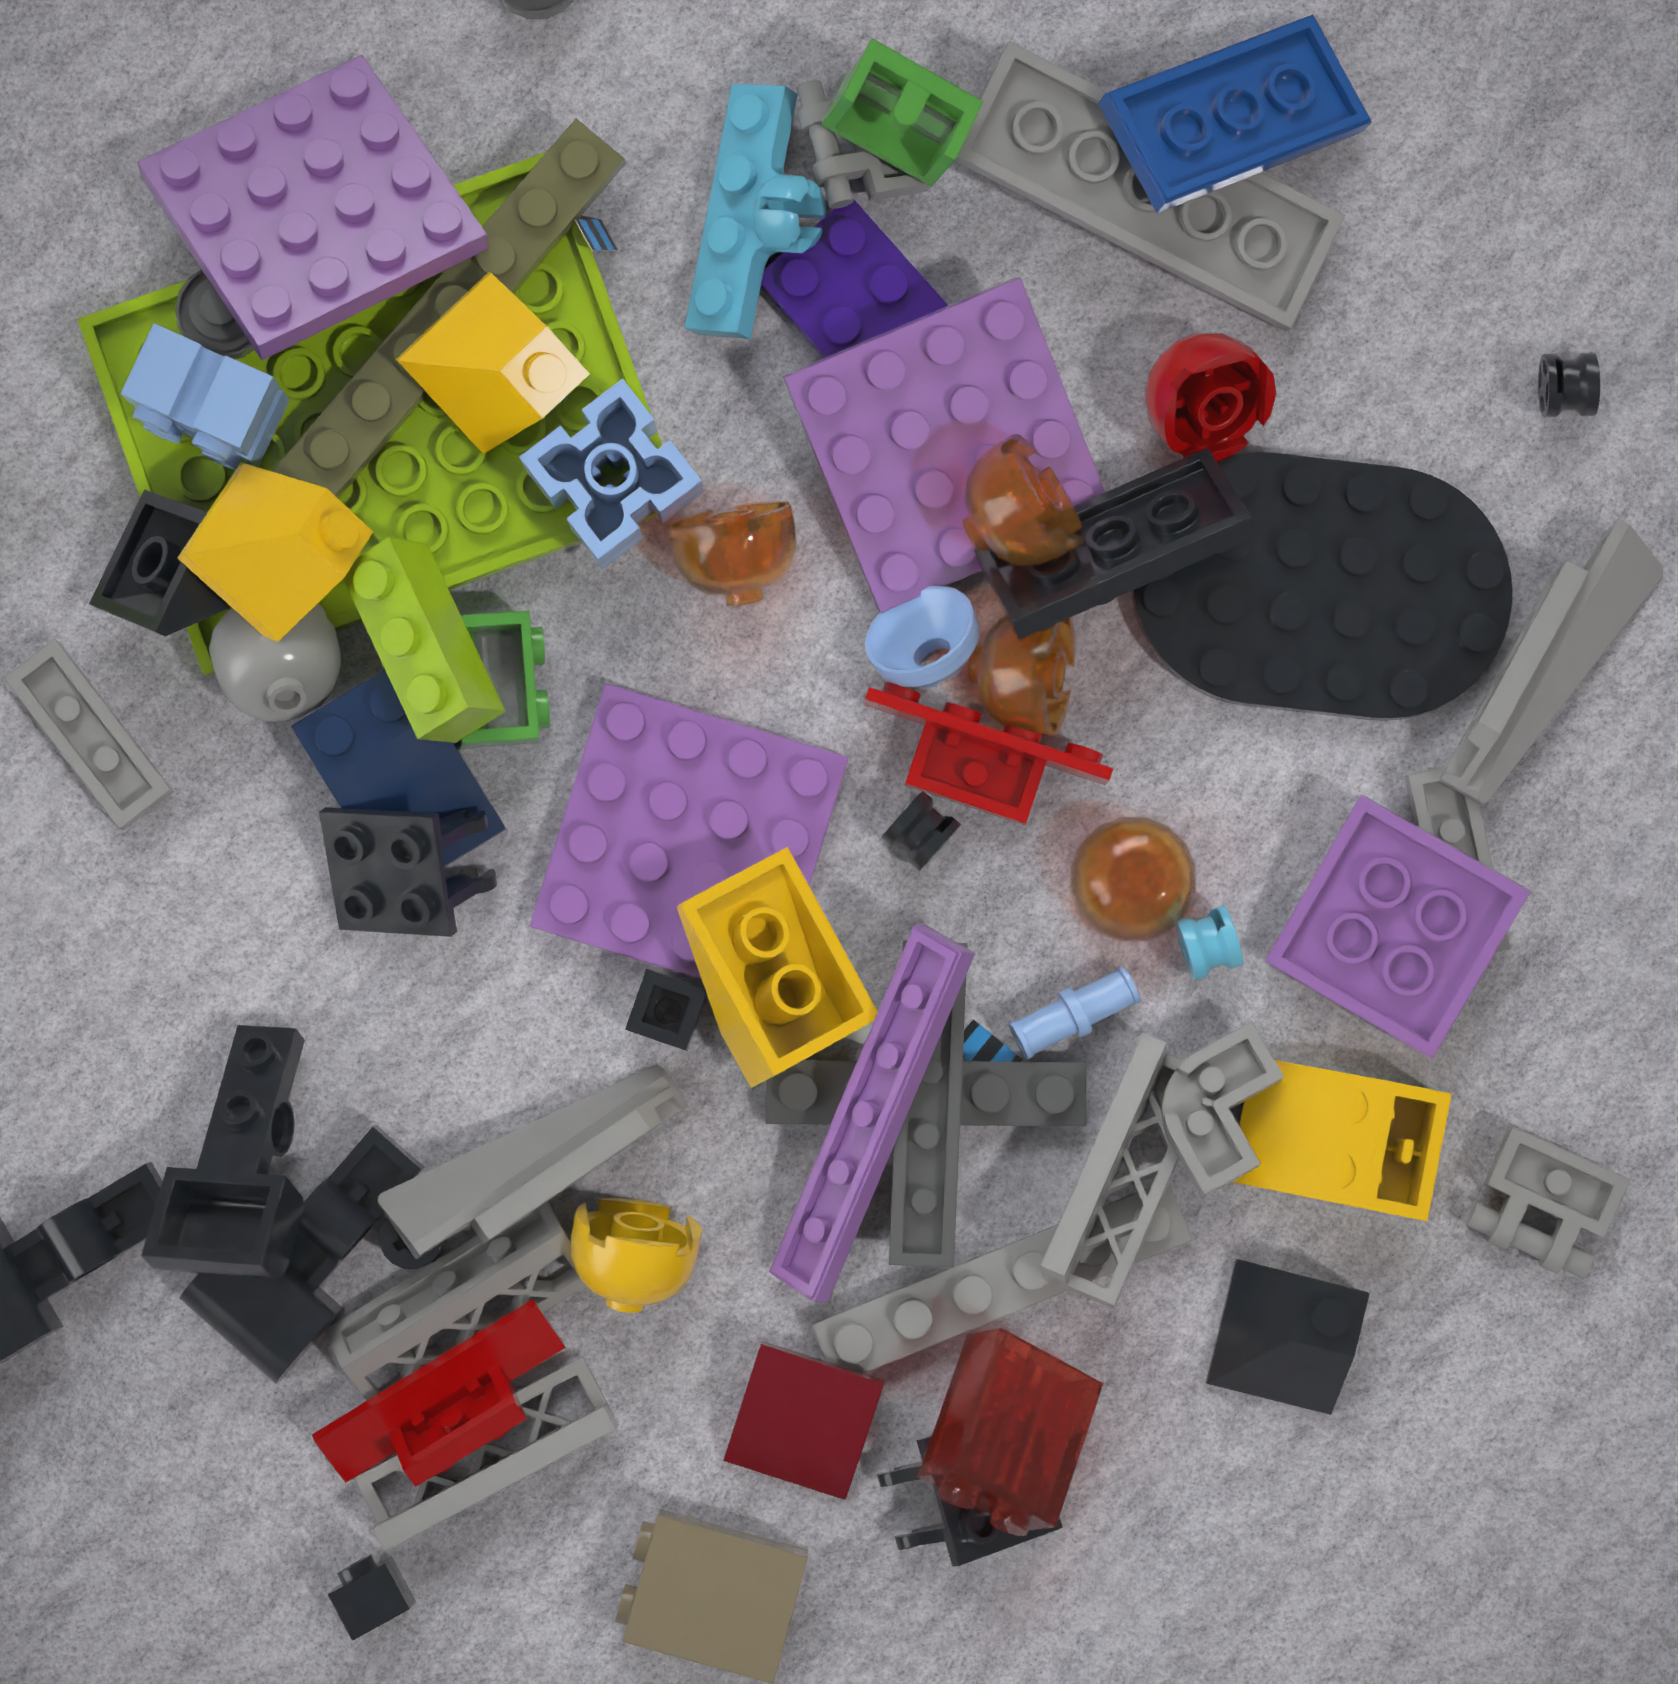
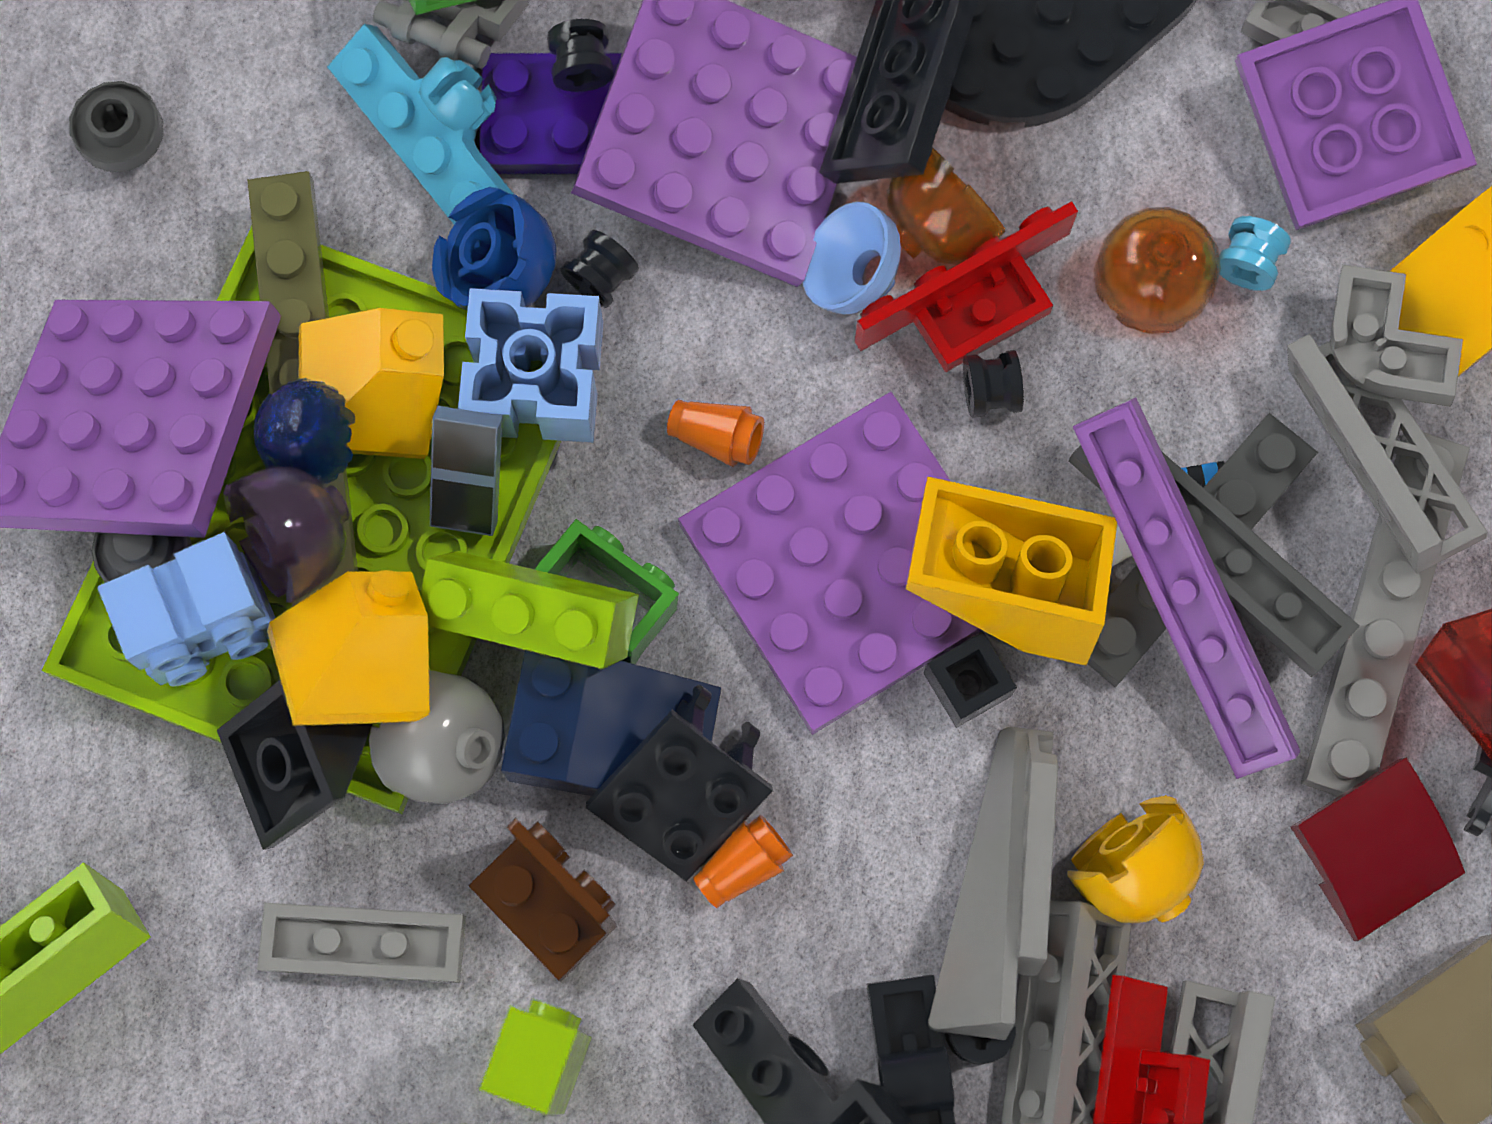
camera: 45 degrees left, 10 degrees down
(106, 939) = (537, 1058): none -> lime brick
(232, 839) = (543, 903): none -> reddish brown bracket
(326, 415) = (290, 527): none -> cylinder
(387, 959) = (743, 862): none -> orange cone
(407, 355) = (305, 429): none -> clear blue hair
(486, 499) = (465, 470): none -> black tile
(596, 234) = (343, 245): sticker -> none
(683, 361) = (494, 246): none -> blue cylinder
(700, 652) = (718, 430): none -> orange cone
(735, 549) = (667, 336): clear orange cylinder -> none
(750, 447) = (599, 267): none -> black wheel
(902, 281) = (580, 55): none -> black wheel
(1019, 507) = (821, 100): clear orange cylinder -> none
(1074, 1012) = (1223, 390): light blue pin -> none

